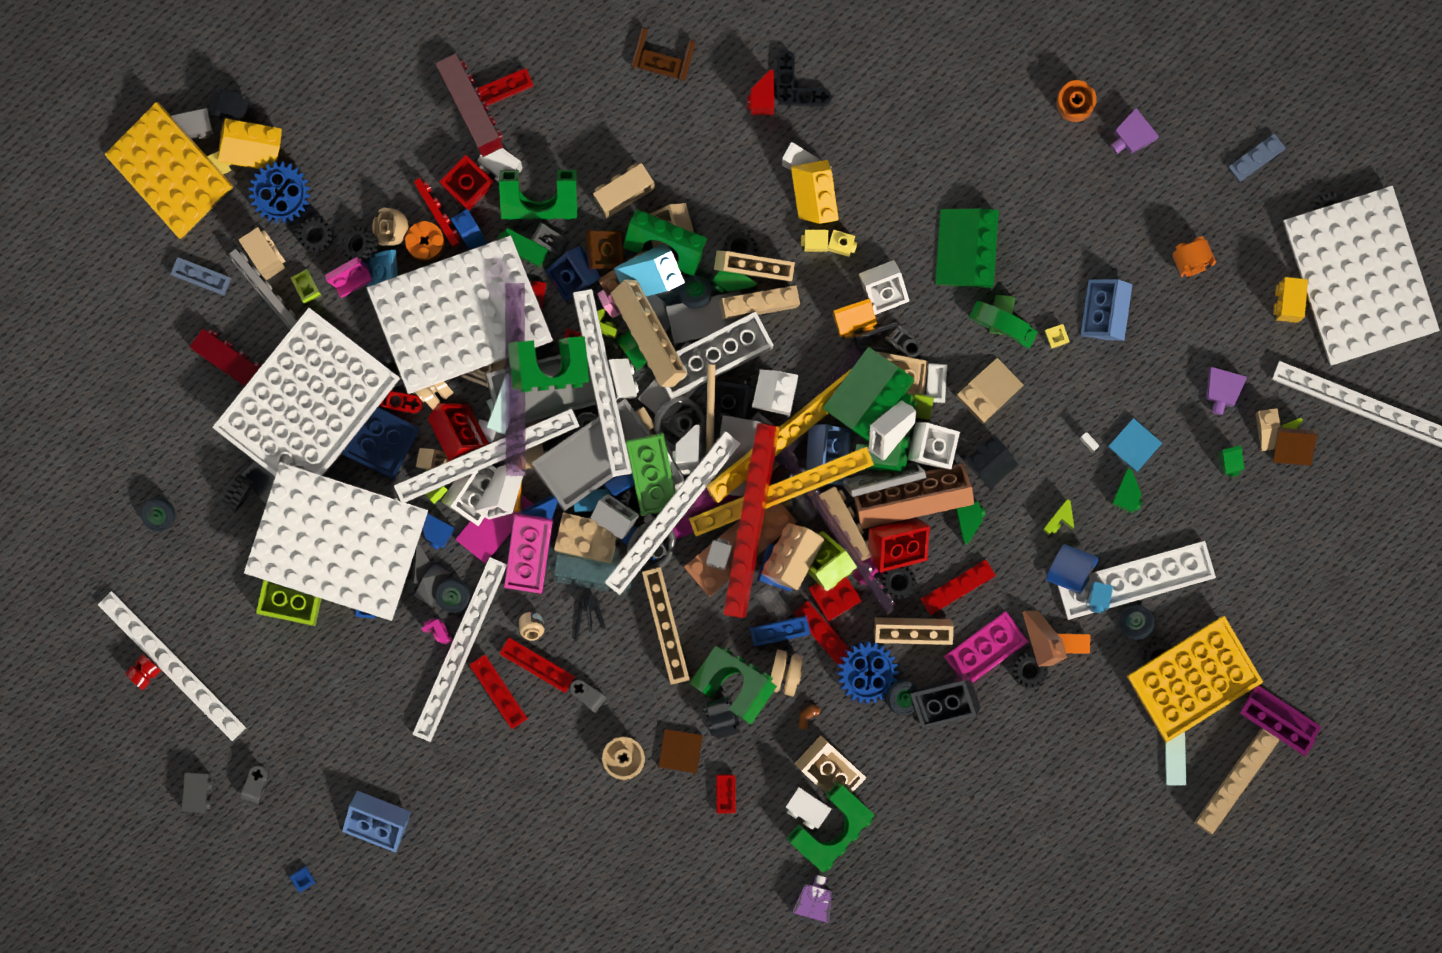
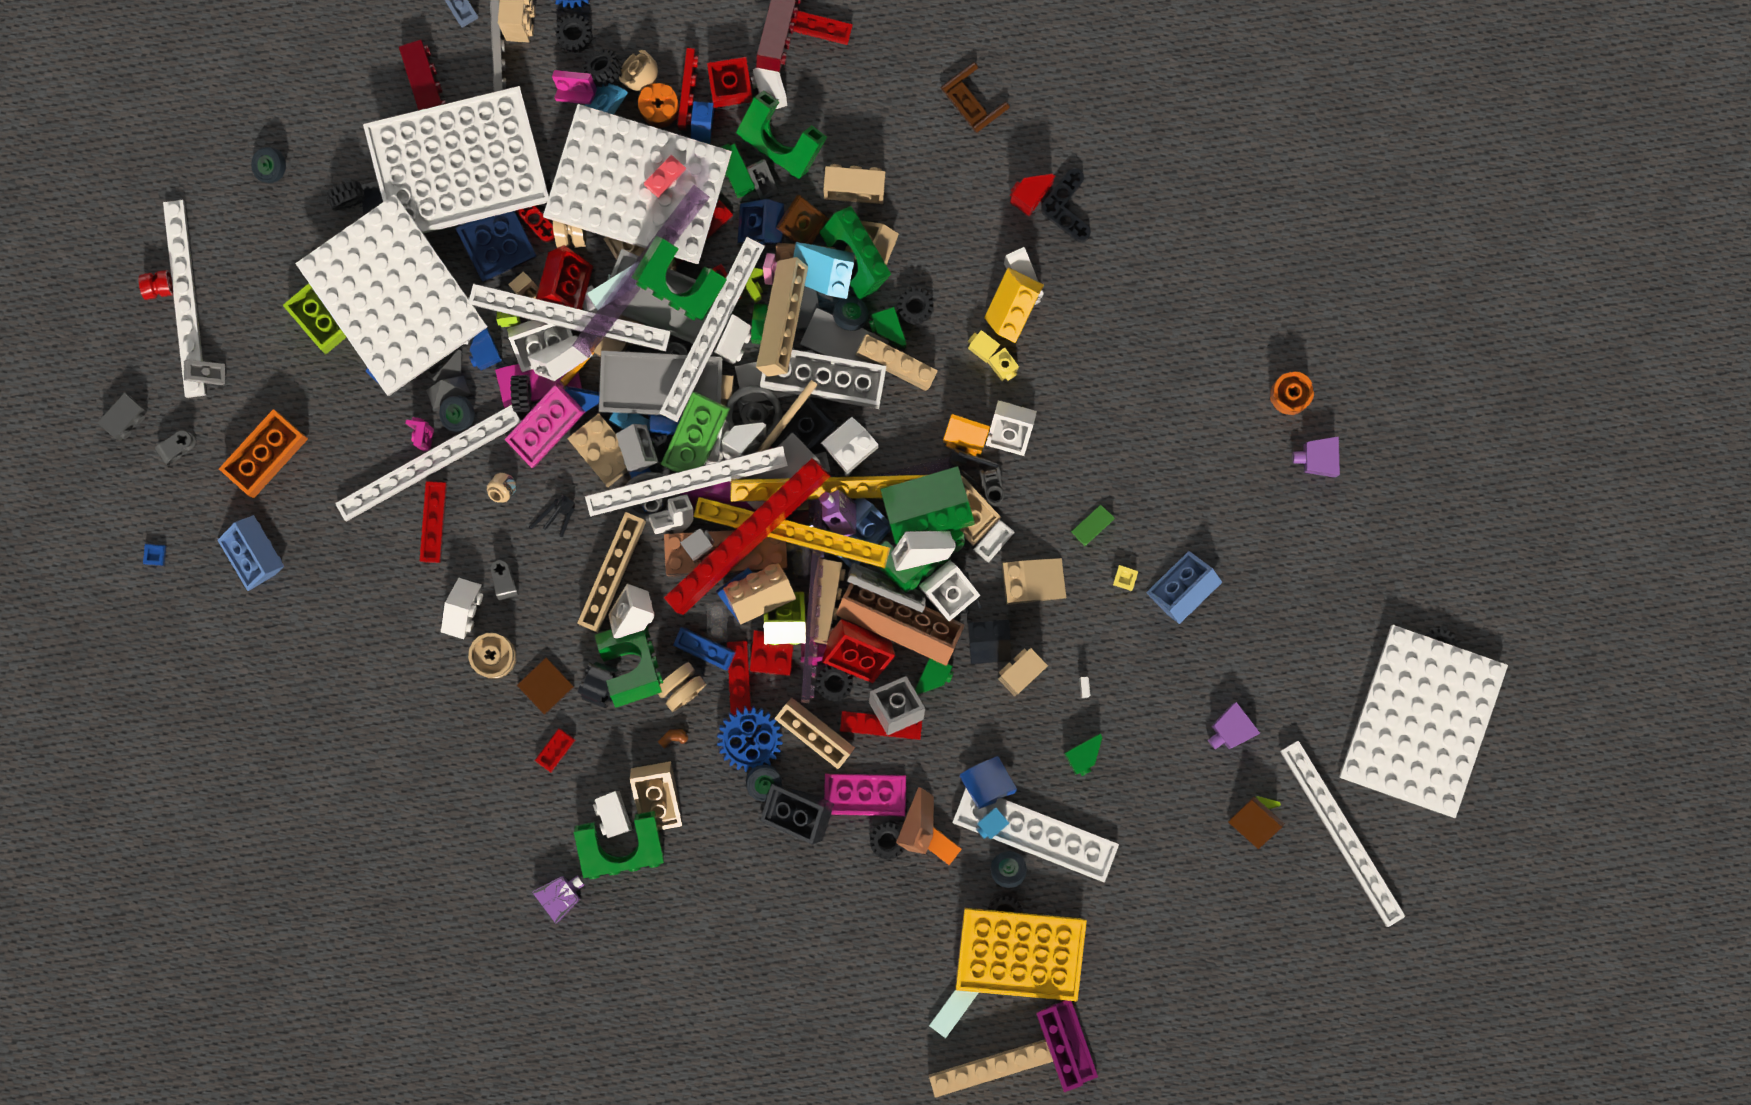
camera: 35 degrees right, 0 degrees up
(233, 710) = (204, 372): none -> light grey plate
(305, 286) = (532, 69): lime slope -> none
(328, 738) = (263, 453): none -> orange brick
(476, 293) = (665, 176): none -> coral plate
(492, 542) = (520, 393): none -> black tyre
(537, 665) = (481, 524): red plate -> none
(572, 740) = (461, 608): none -> white brick
(584, 572) = (579, 477): clear light blue windscreen -> none
(683, 547) = (676, 518): none -> white brick
(704, 645) = (631, 612): none -> white slope
(754, 265) = (914, 327): tan brick -> none
(802, 445) = (839, 512): none -> medium lavender torso
(925, 406) = (968, 552): lime slope -> none
(959, 562) = (896, 705): none -> light grey brick
(967, 247) = (1106, 447): green slope -> none
(1003, 322) = (1088, 533): green arch -> none
(1035, 465) = (1022, 672): none -> tan brick
(1063, 514) = (1017, 733): lime slope -> none
(1135, 445) = (1121, 719): dark azure tile -> none
(1193, 257) = (1291, 598): orange brick -> none
(1231, 461) = (1192, 794): green slope -> none
(1256, 158) = (1409, 555): sand blue plate -> none
(1267, 426) = (1246, 788): tan slope -> none
(1291, 299) = (1347, 696): yellow brick -> none

